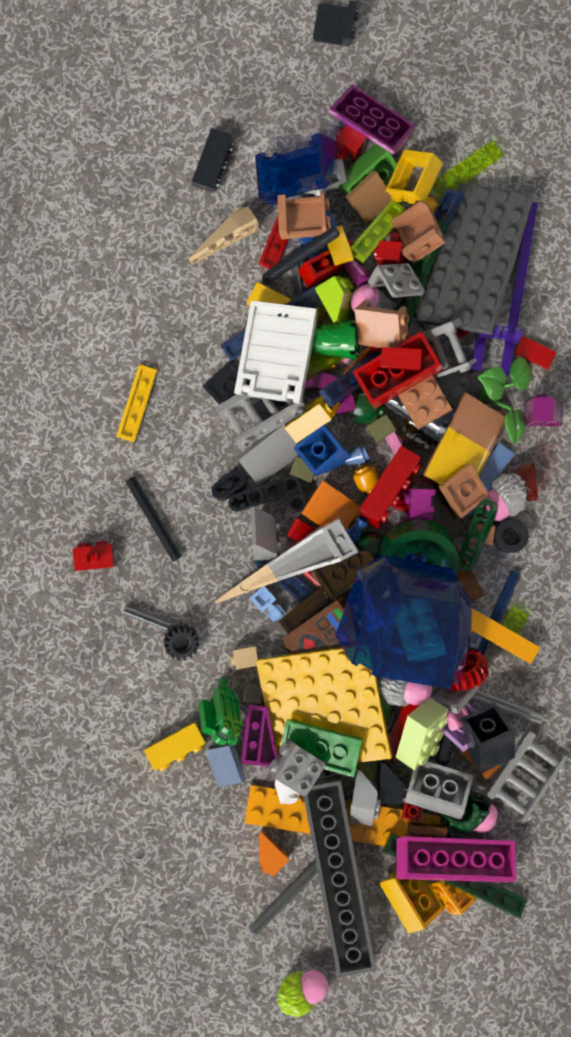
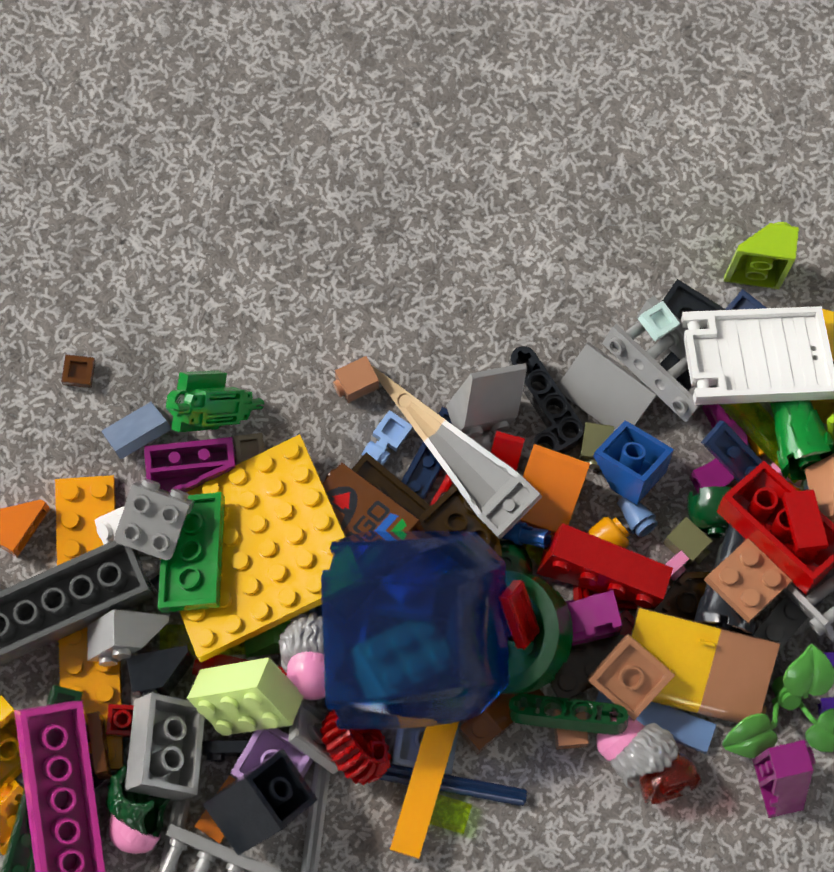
camera: 70 degrees right, 15 degrees down
(93, 557) = (395, 186): red brick -> none
(137, 403) = (627, 198): yellow tile -> none
(148, 617) = (325, 284): dark grey axle -> none
(153, 519) = (469, 256): black axle -> none
(174, 794) = (78, 371): none -> reddish brown plate
(175, 746) = (146, 354): yellow brick -> none
(183, 652) = (287, 323): black tyre -> none
(207, 324) = (765, 257): none -> lime slope
(223, 615) = (355, 379): none -> nougat brick
(228, 484) = (546, 346): black plate -> none
(236, 409) = (658, 321): none -> light aqua plate
(244, 657) = (300, 420): tan brick -> none
(316, 415) = (676, 430): yellow window -> none
(414, 552) = (519, 614): none -> red tile
(454, 720) = (279, 740): bright pink slope -> none
(521, 541) = (592, 760): black tyre -> none

